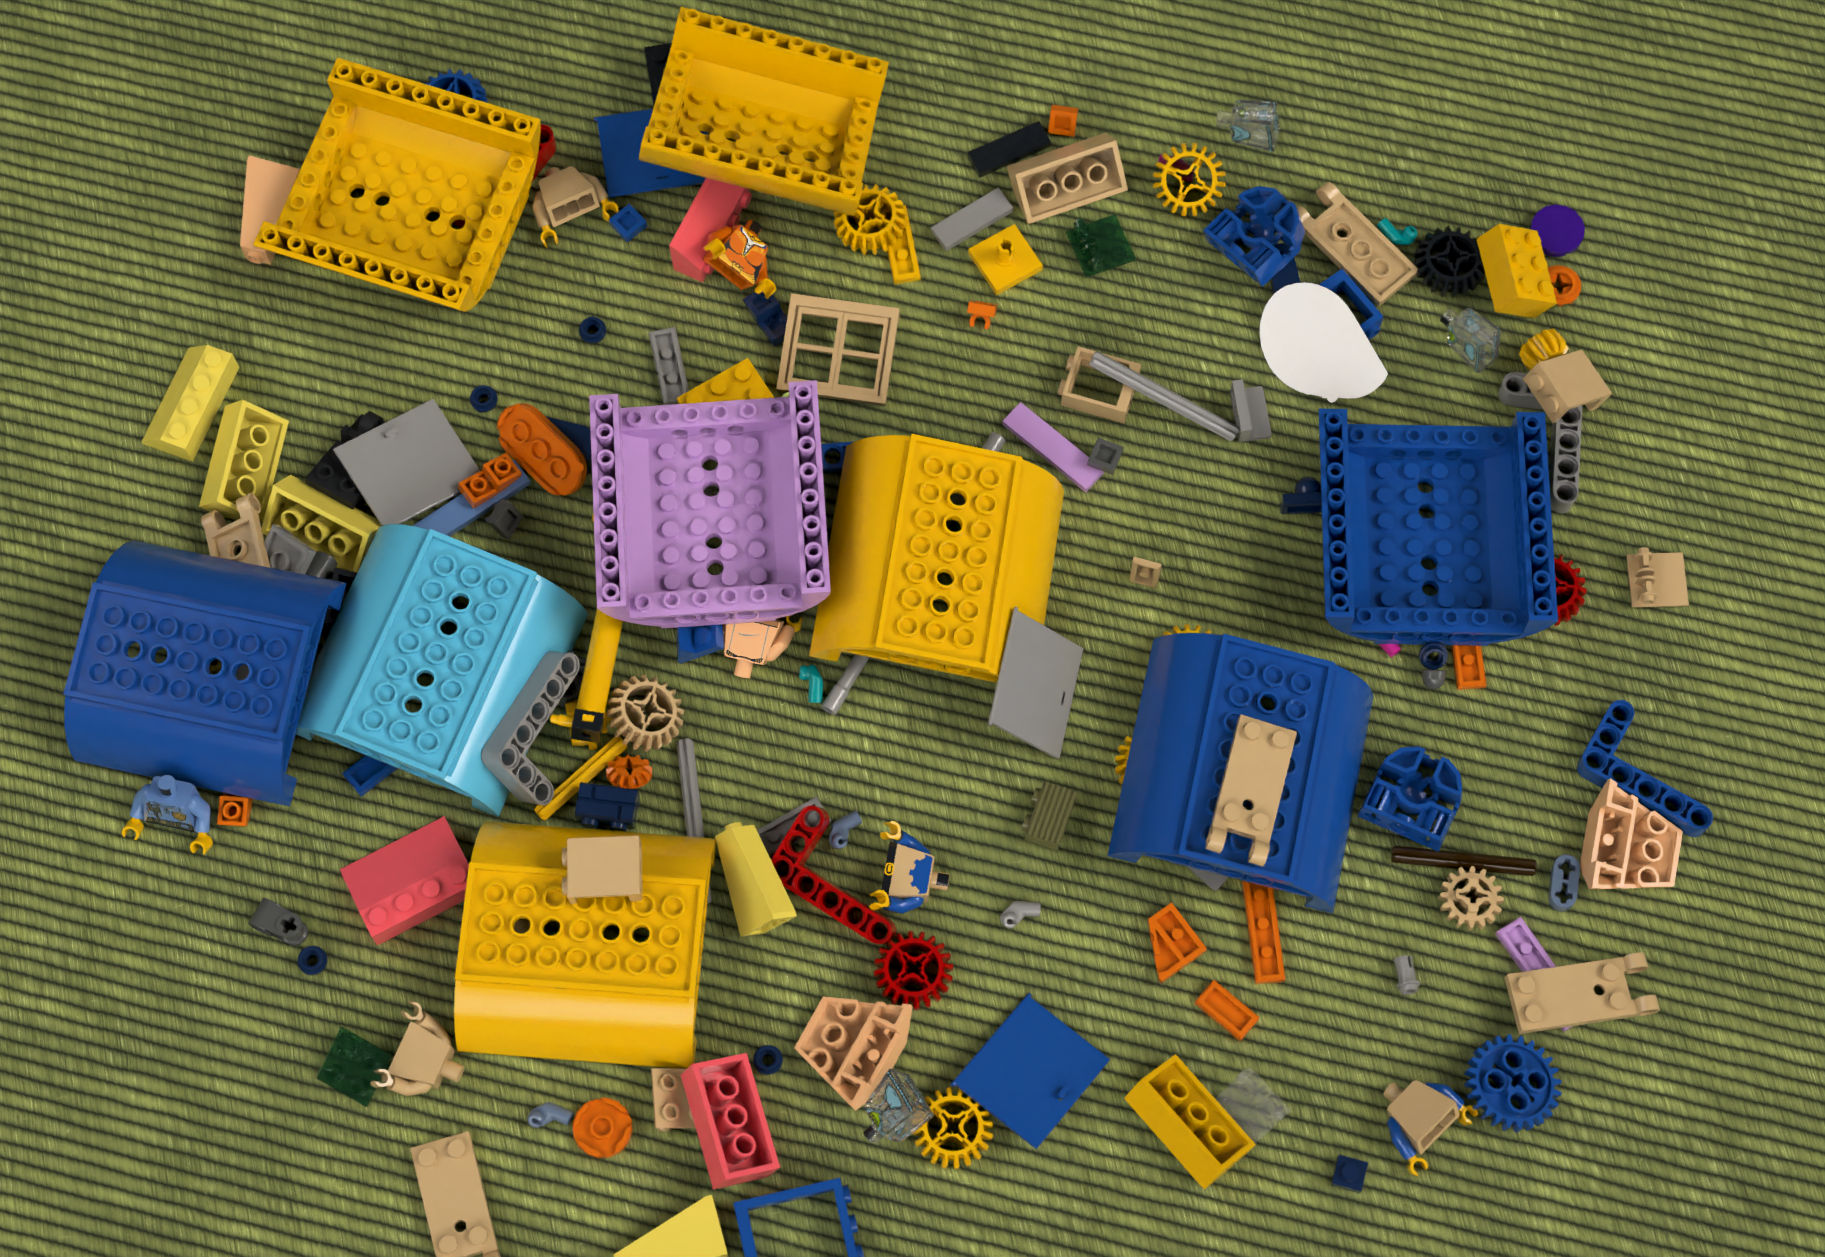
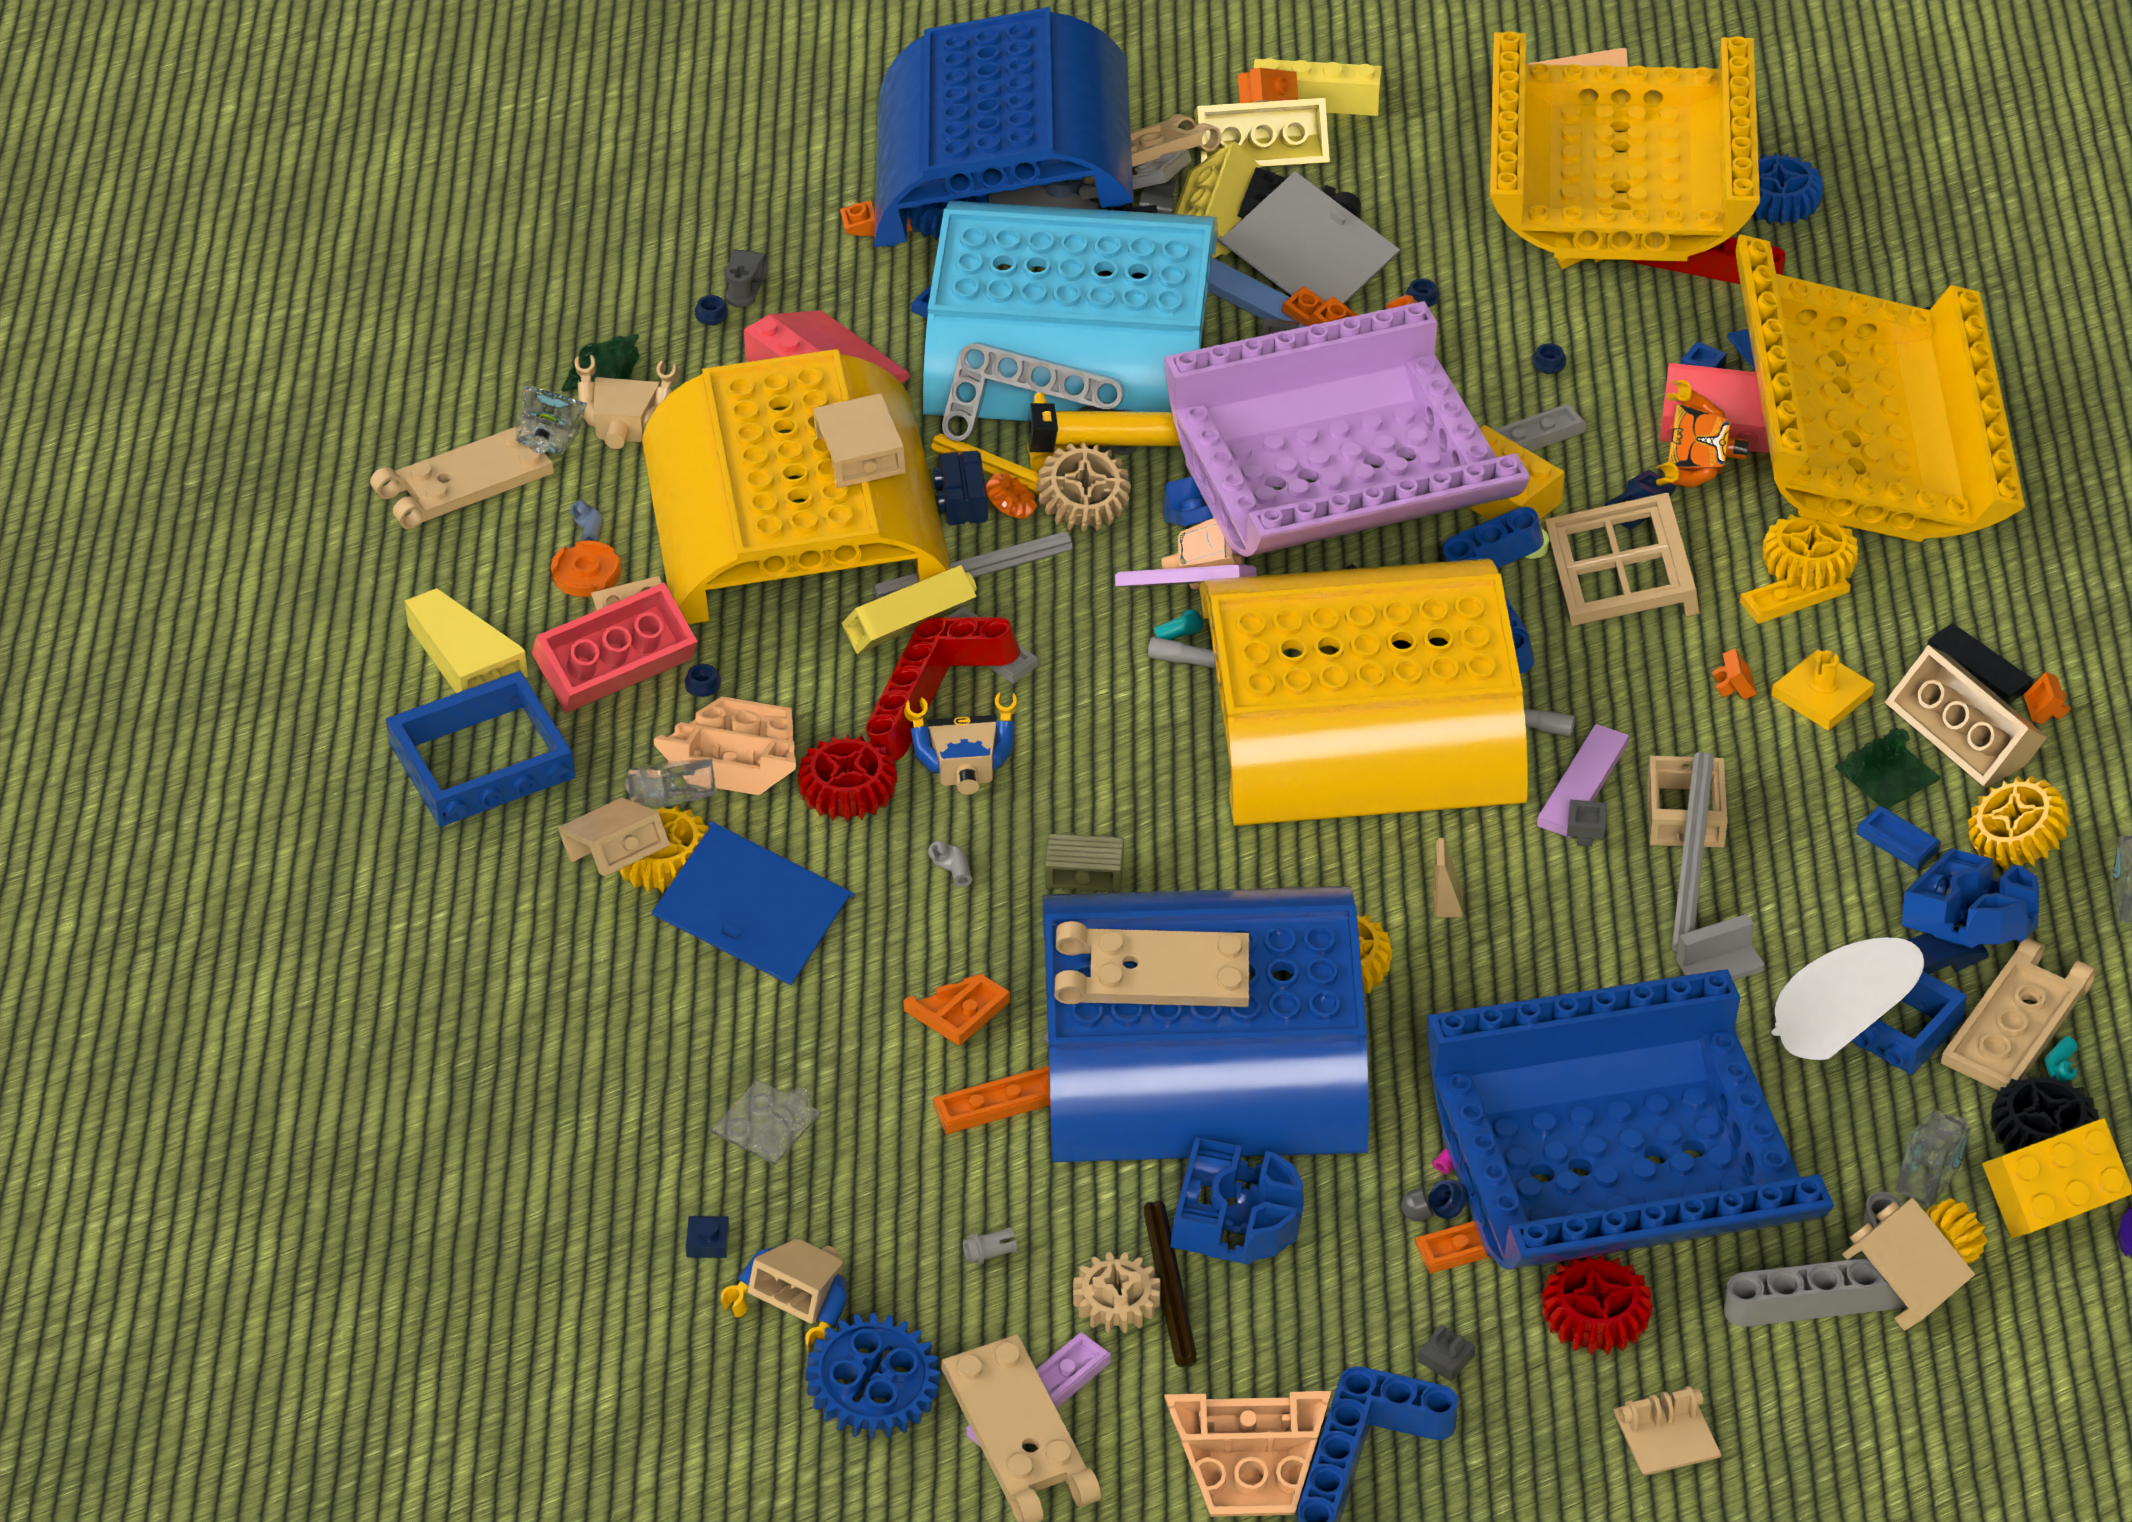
camera: 75 degrees right, 25 degrees down
(174, 806) = (846, 168): medium blue torso -> none
(209, 441) = (1267, 85): none -> orange brick
(428, 1125) = (548, 420): none -> clear torso
(566, 196) = (1702, 294): tan torso -> none
(781, 663) = (1181, 575): none -> lavender tile
(840, 829) = (992, 685): sand blue arm -> none
(943, 1161) = (615, 835): none -> tan panel
(972, 219) = (1861, 648): light grey tile -> none
(1035, 684) = (1243, 793): light grey piece -> none
(1163, 260) = (1898, 837): none -> blue tile
(1189, 1121) = (730, 1058): yellow slope -> none
(1227, 1010) = (888, 1080): orange tile -> none
(1561, 697) = (1446, 1353): none -> dark grey tile
(1567, 278) = (2079, 1240): orange gear -> none
(1570, 884) = (1170, 1385): sand blue beam -> none

